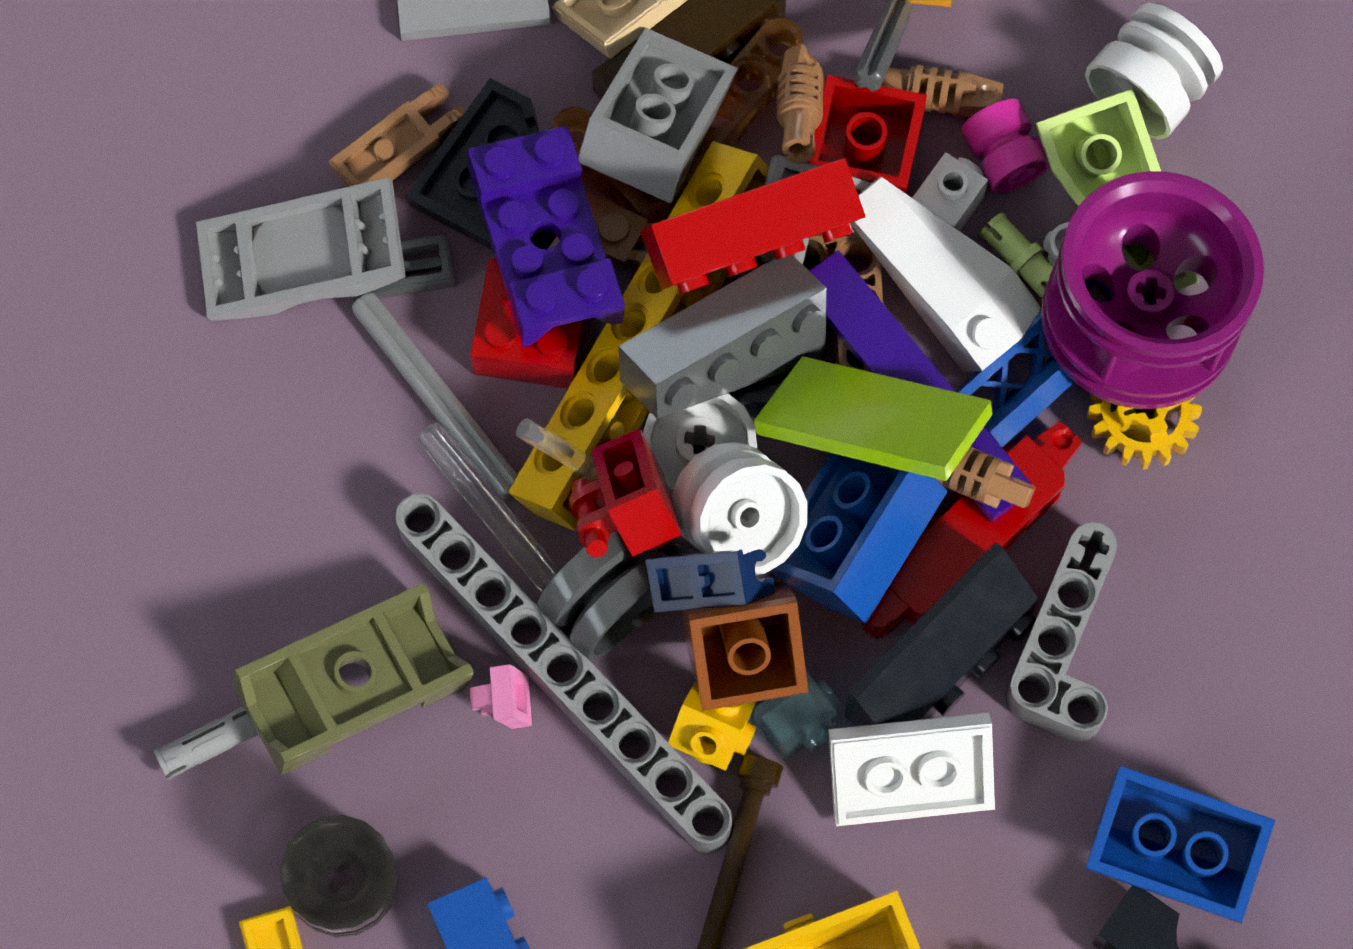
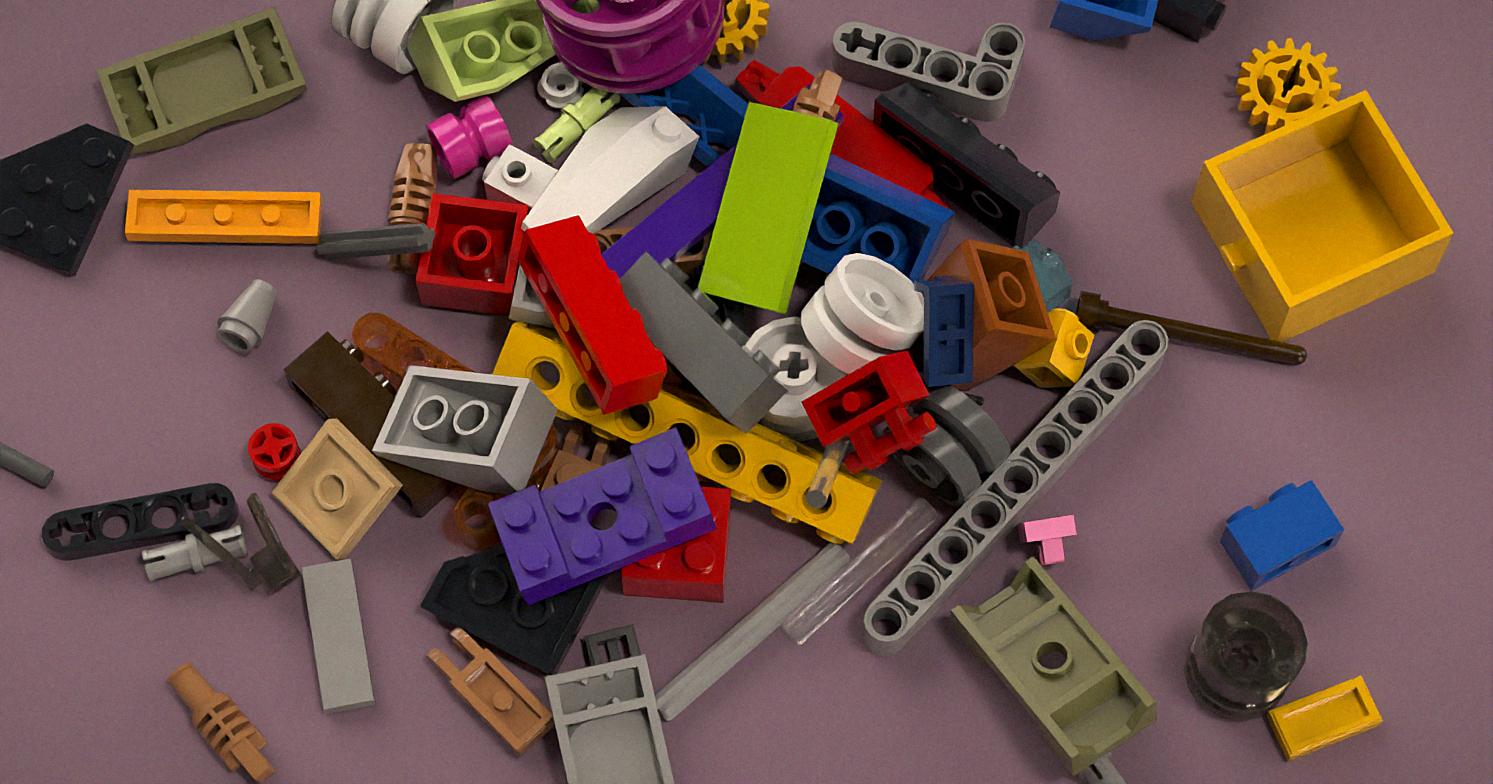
camera: 95 degrees left, 5 degrees down
(799, 103) = (451, 297): medium nougat hinge -> none
(912, 769) = (1076, 178): white tile -> none

